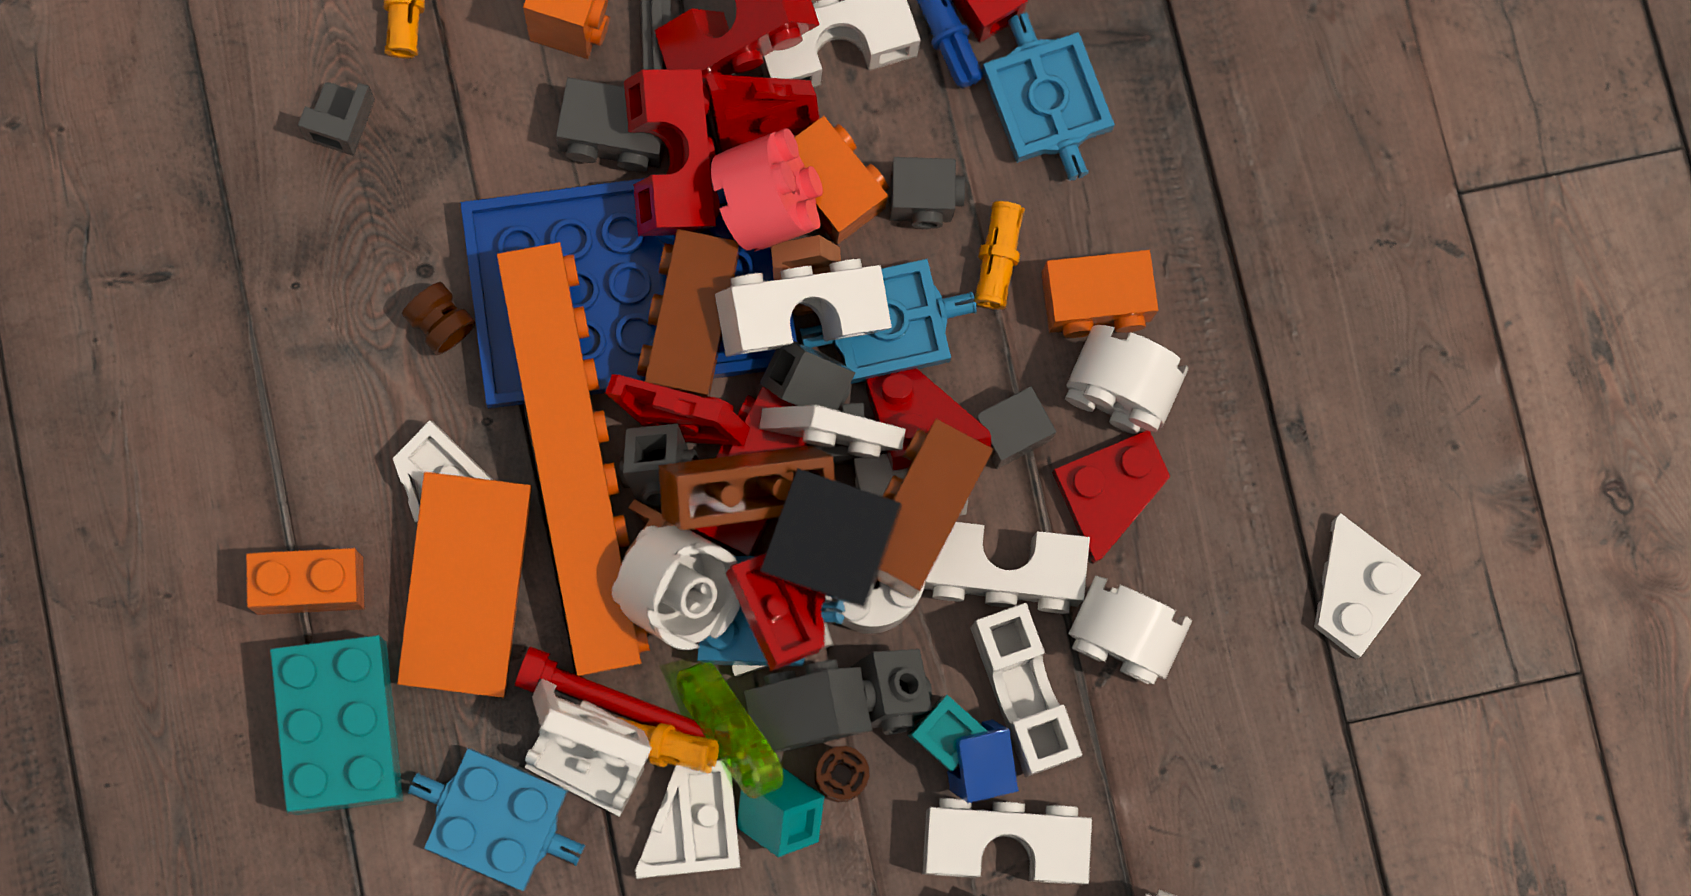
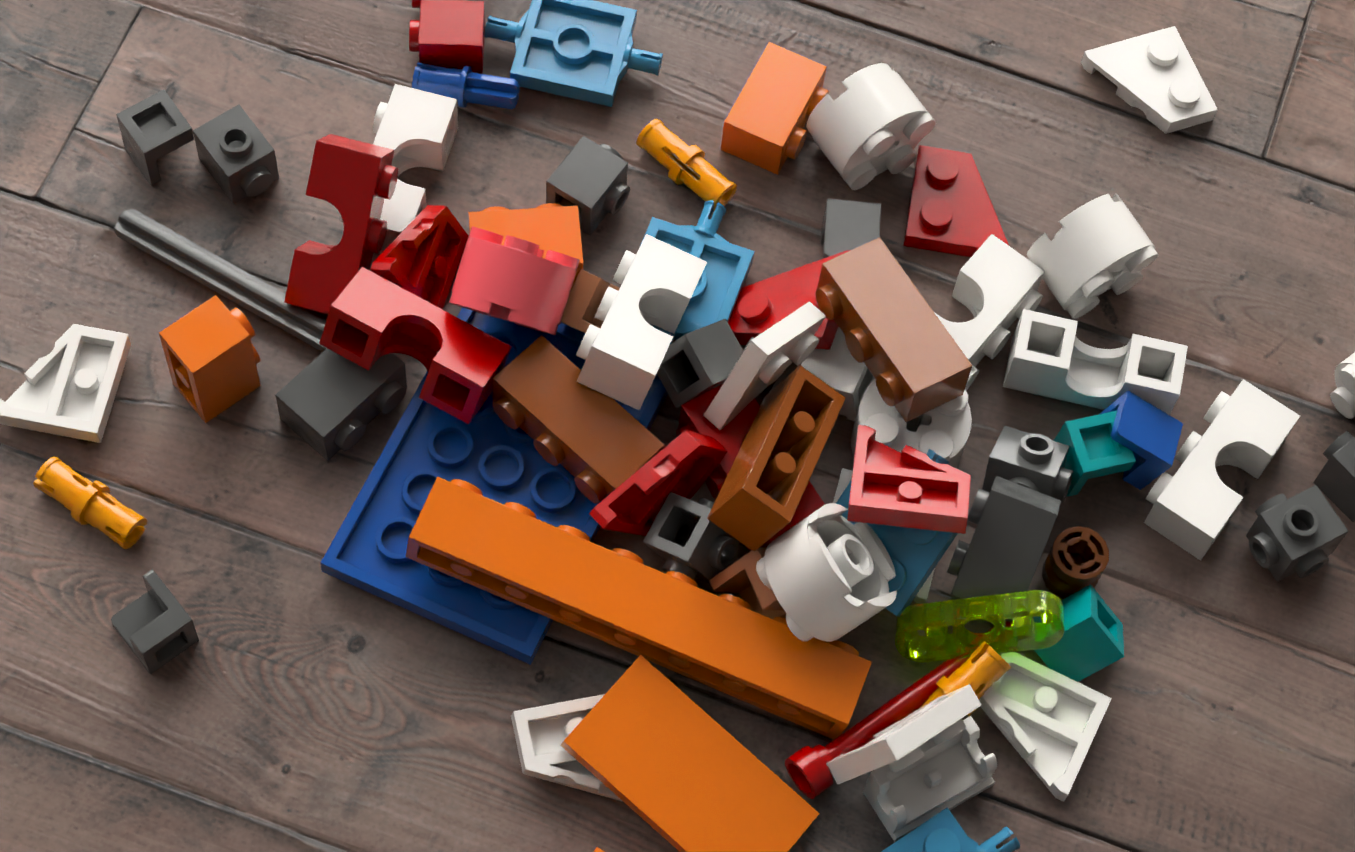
camera: 50 degrees left, 15 degrees down
(438, 318) = (416, 650): reddish brown wheel -> none
(831, 538) = (880, 403): black tile -> none

